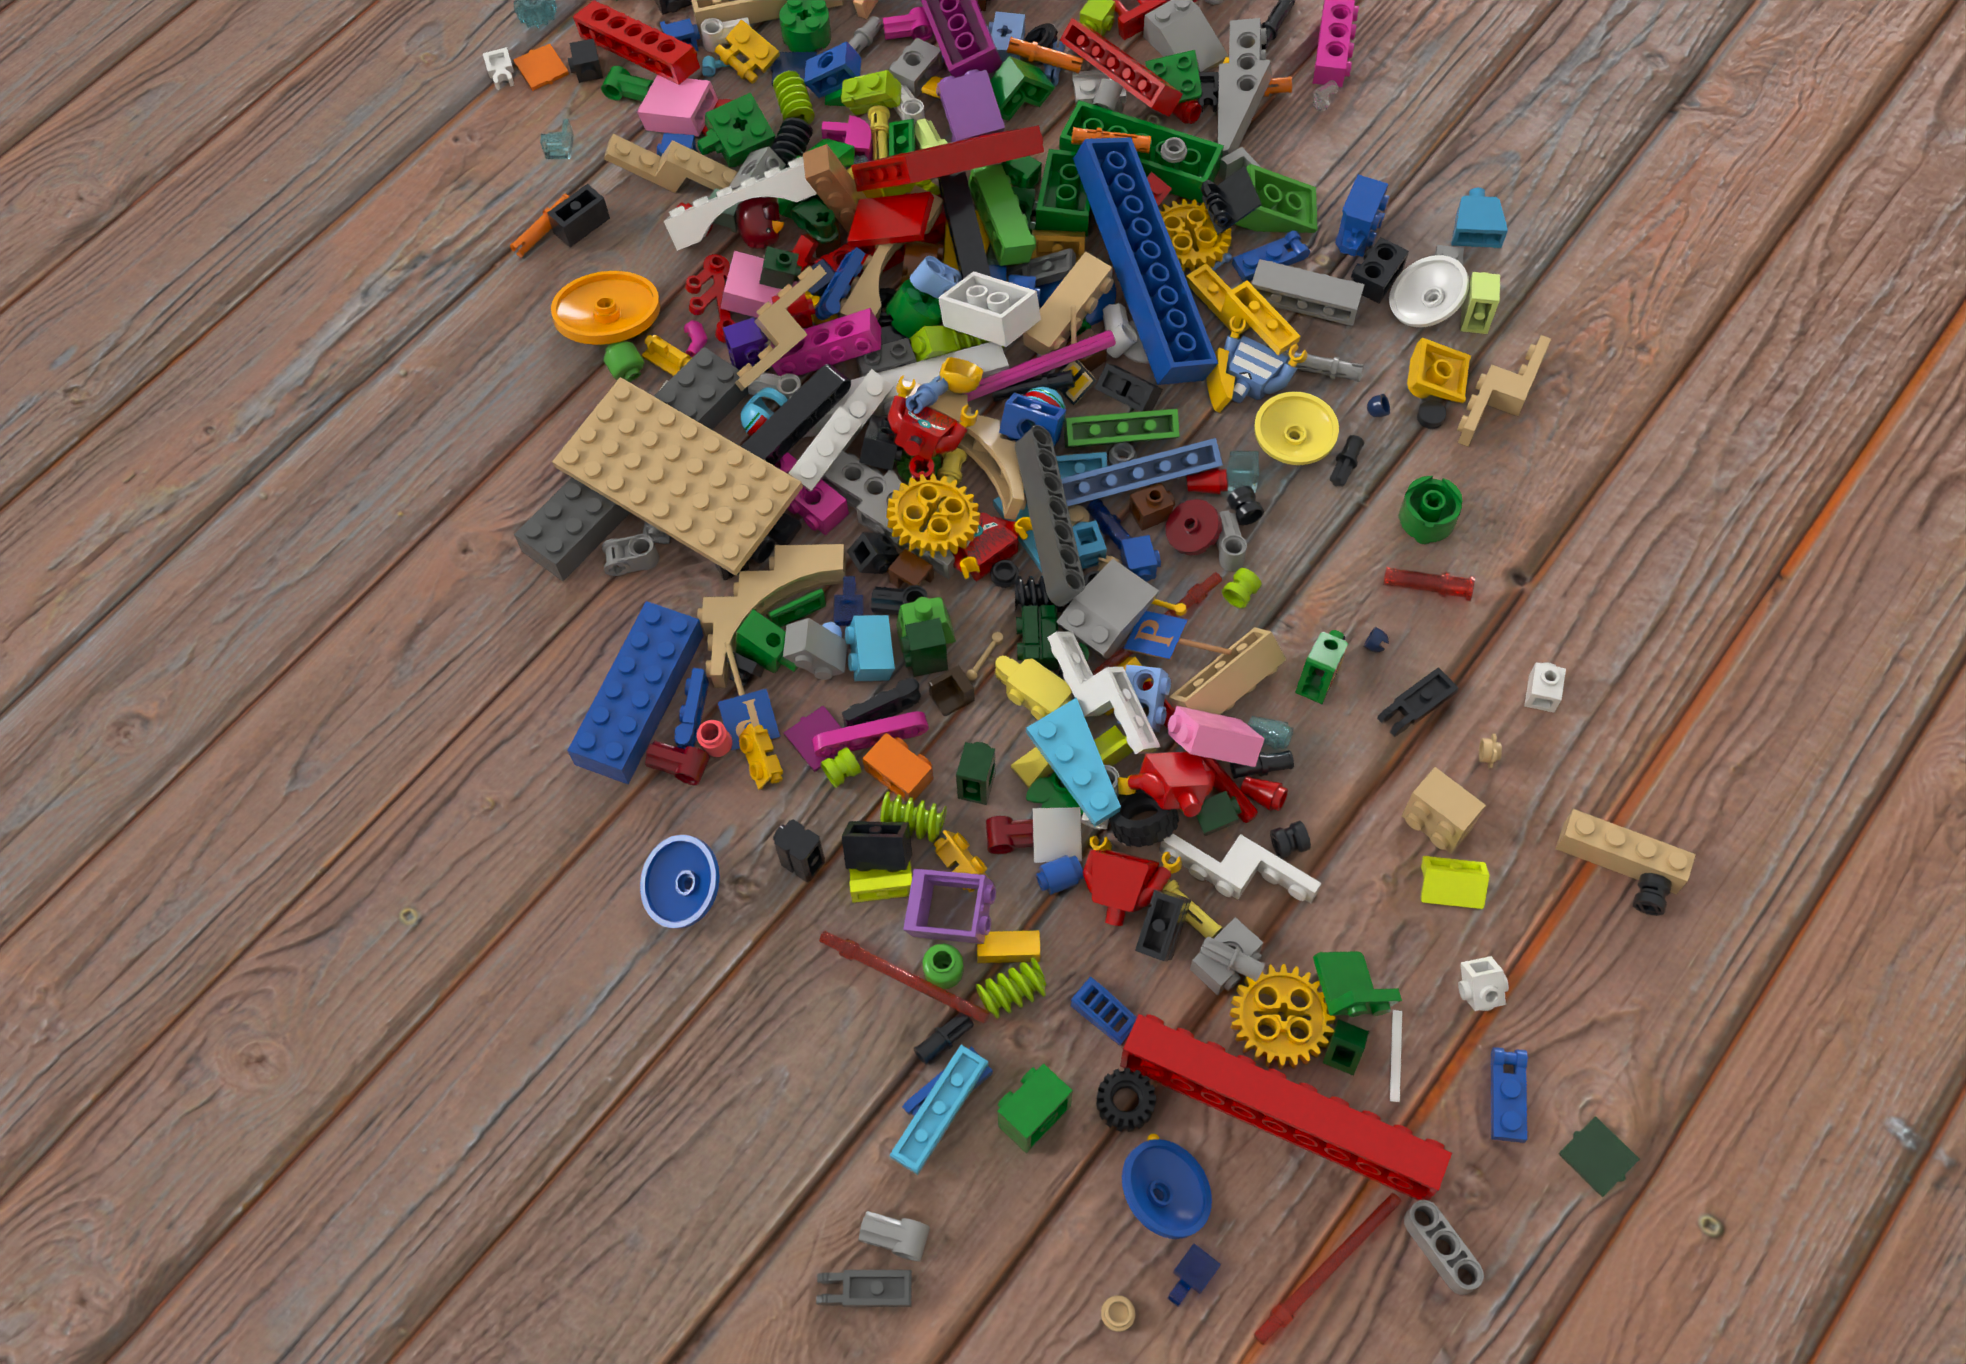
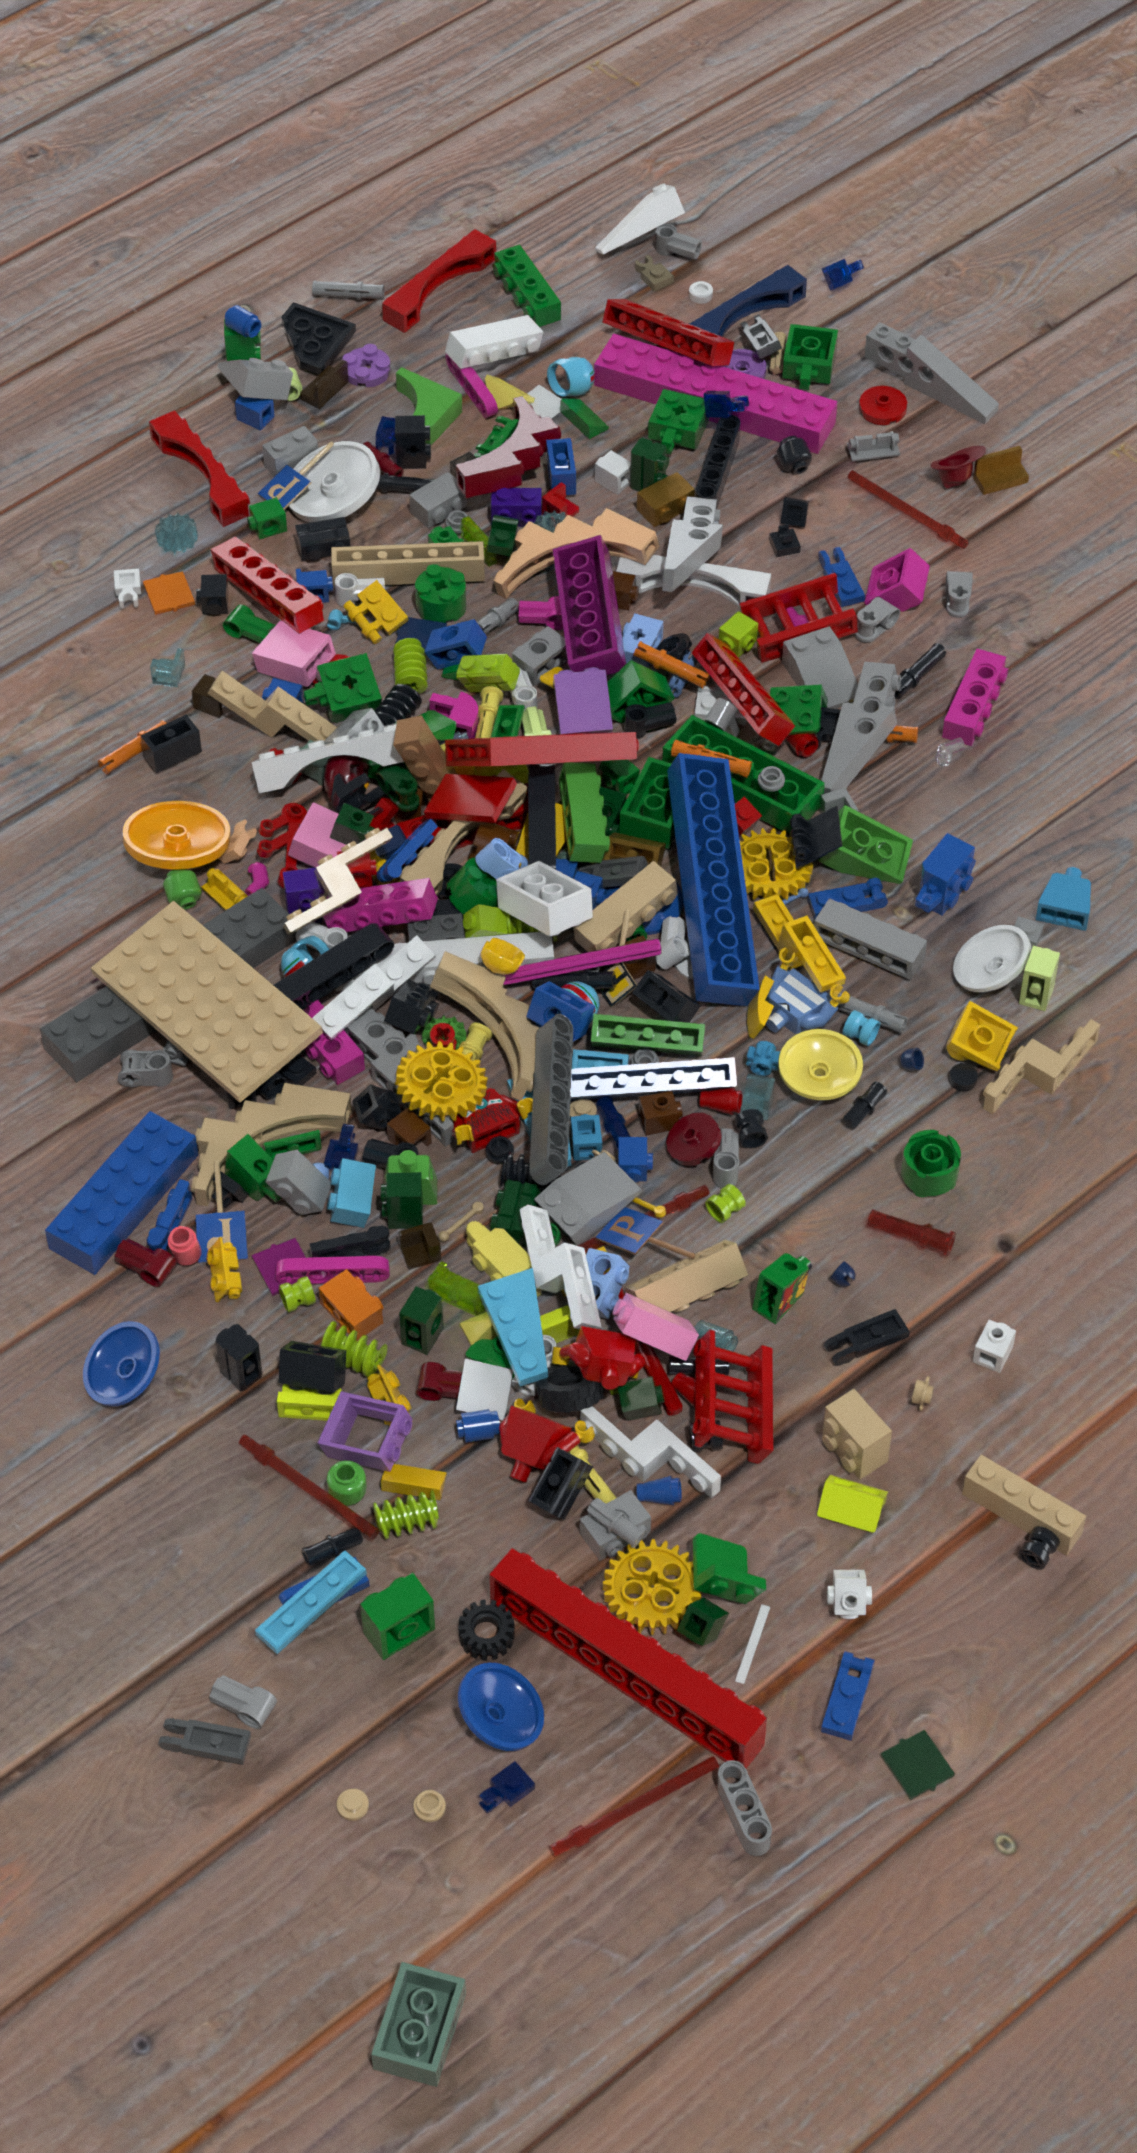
camera: 10 degrees right, 10 degrees down
(601, 168) = (203, 701): none -> dark brown panel
(668, 304) = (238, 842): none -> light nougat plate
(773, 235) = (354, 793): none -> black piece
(926, 394) = (462, 967): medium blue pin -> none
(926, 431) = (453, 1000): red torso -> none
(1001, 730) = (456, 1290): none -> clear neon green hinge
(1028, 112) = (641, 718): none -> black piece
(1037, 1329) = (352, 1804): none -> tan plate
(1104, 995) = (477, 1535): blue slope -> none
(1237, 431) = (763, 1058): none -> dark azure gear
(1261, 908) = (661, 1491): none -> blue cone
(1316, 381) = (861, 1028): none -> medium azure wheel
(1332, 787) = (757, 1389): none -> red fence
(1380, 269) = (951, 930): black brick -> none

